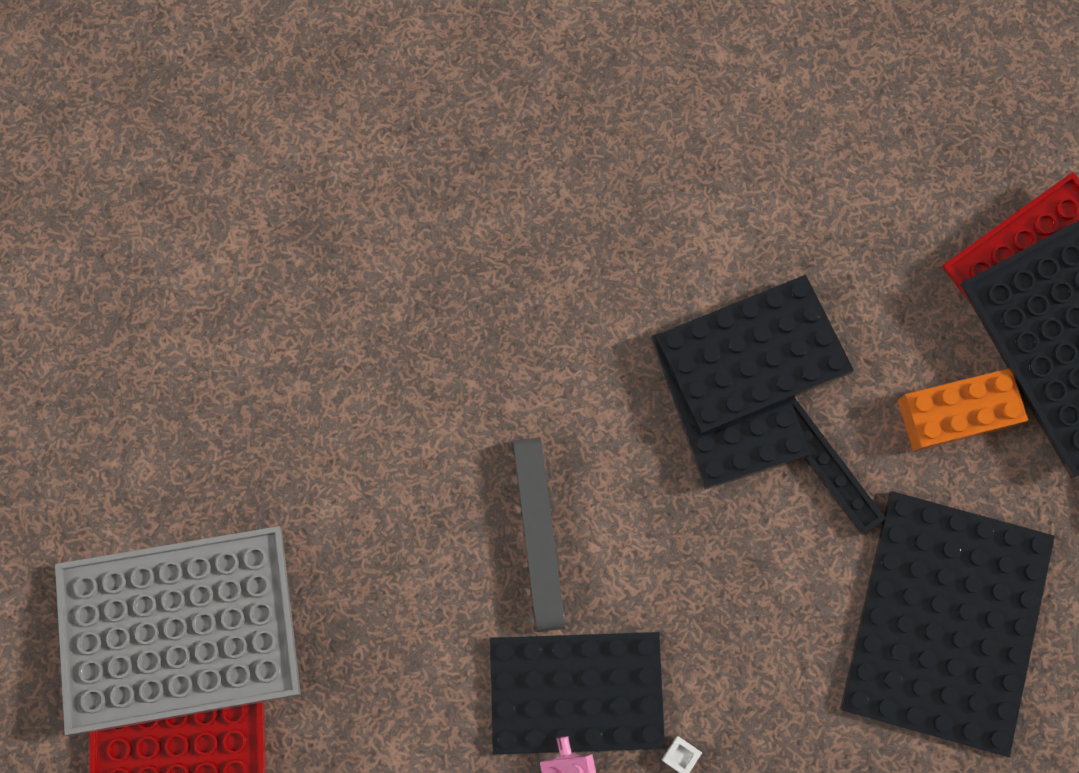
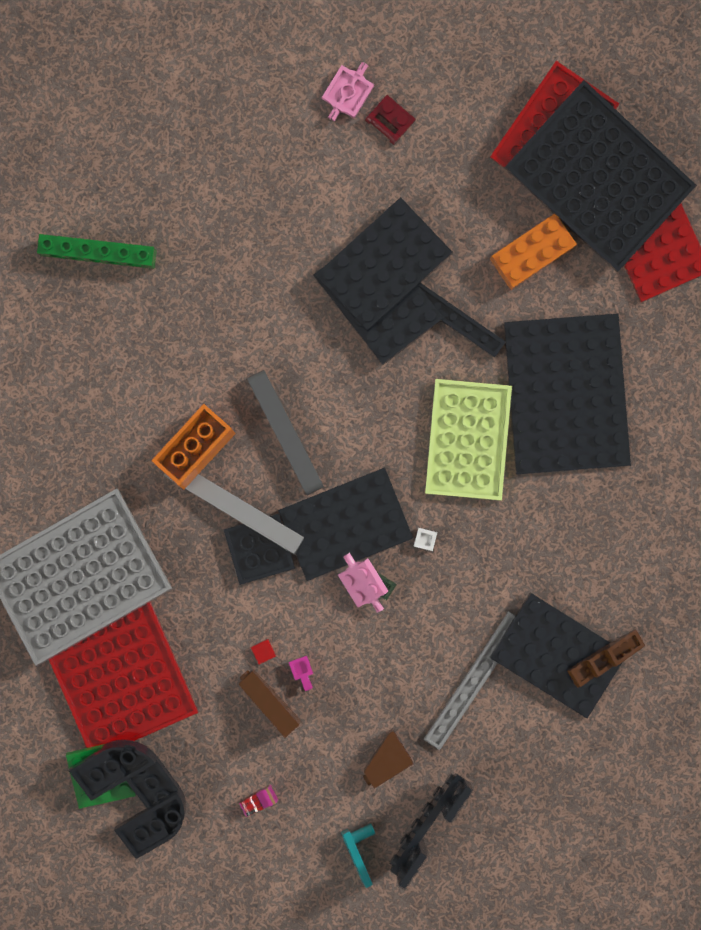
camera: 20 degrees left, 10 degrees up
(377, 204) = (96, 251): none -> green brick
(406, 506) = (193, 446): none -> orange brick
(431, 612) = (245, 513): none -> light grey tile
(443, 683) = (256, 555): none -> black plate
(780, 119) = (348, 91): none -> bright pink plate
(789, 636) = (468, 439): none -> yellowish green plate
(830, 170) = (395, 115): none -> dark red plate

